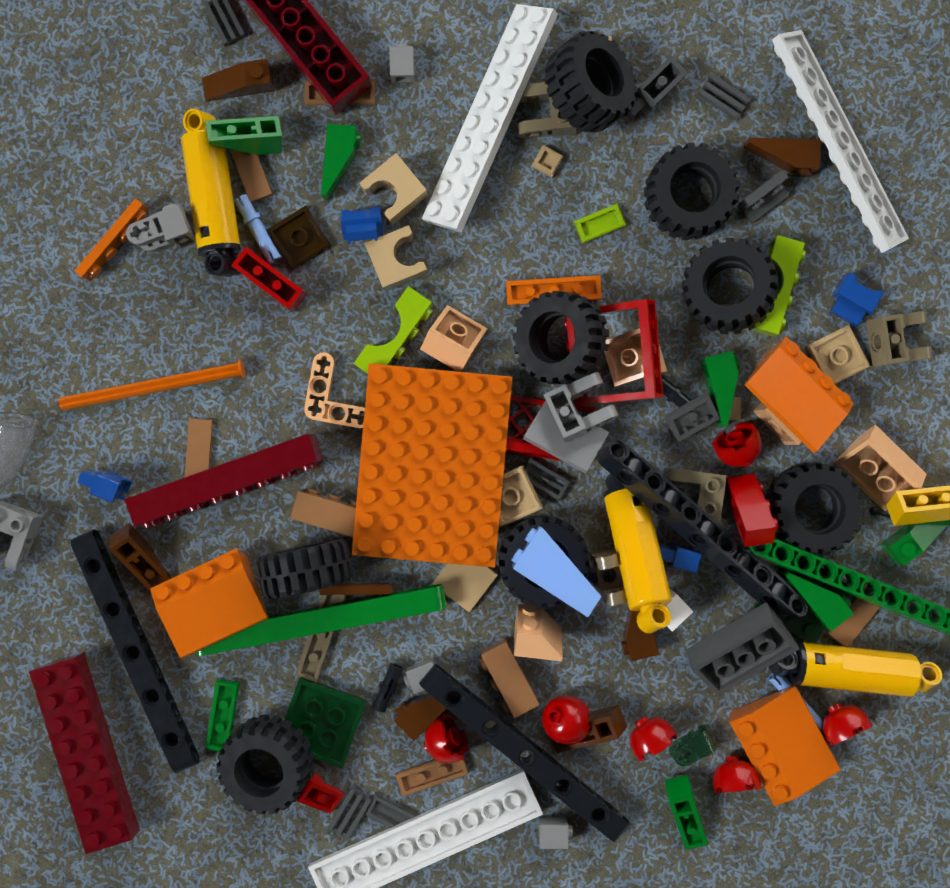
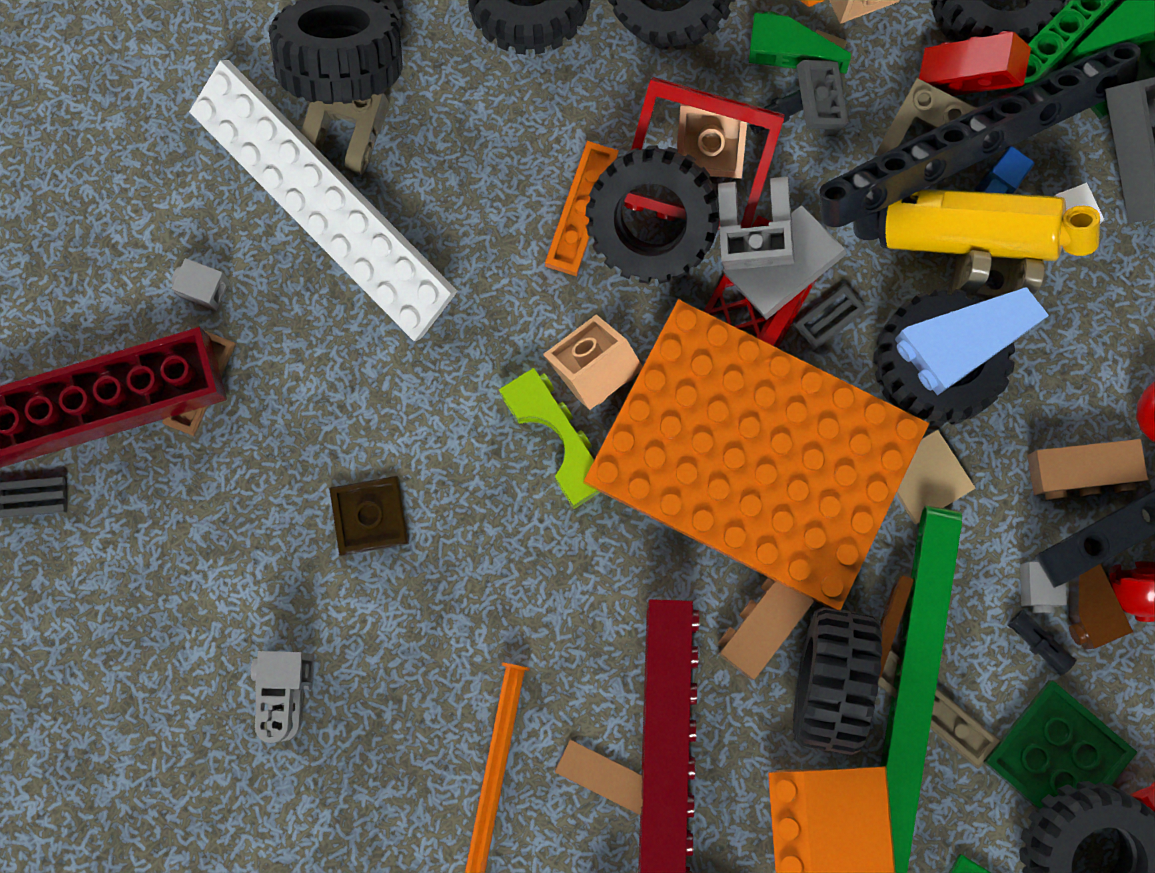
camera: 70 degrees left, 10 degrees down
(106, 247) = (268, 789): orange plate -> none
(210, 196) = (258, 608): yellow piece -> none
(239, 81) = (122, 509): reddish brown slope -> none
(247, 135) = (202, 522): green slope -> none
(252, 175) = (241, 544): medium nougat tile -> none
(253, 221) = (333, 566): light blue pin -> none
(269, 279) = (410, 575): red brick -> none
(327, 406) = (614, 570): light nougat beam -> none
(340, 152) = (276, 410): green slope -> none
(362, 224) = (389, 420): blue piece -> none
(383, 257) = (454, 409): tan piece -> none
(398, 177) = (355, 344): tan piece -> none
(517, 497) = (841, 356): tan tile -> none
(537, 634) = (1041, 406): light nougat slope -> none
(547, 161) = (408, 152): tan tile -> none
(599, 223) = (518, 117): lime tile -> none
(636, 642) = (1089, 277): reddish brown slope -> none
(739, 446) = (882, 46): red cylinder -> none

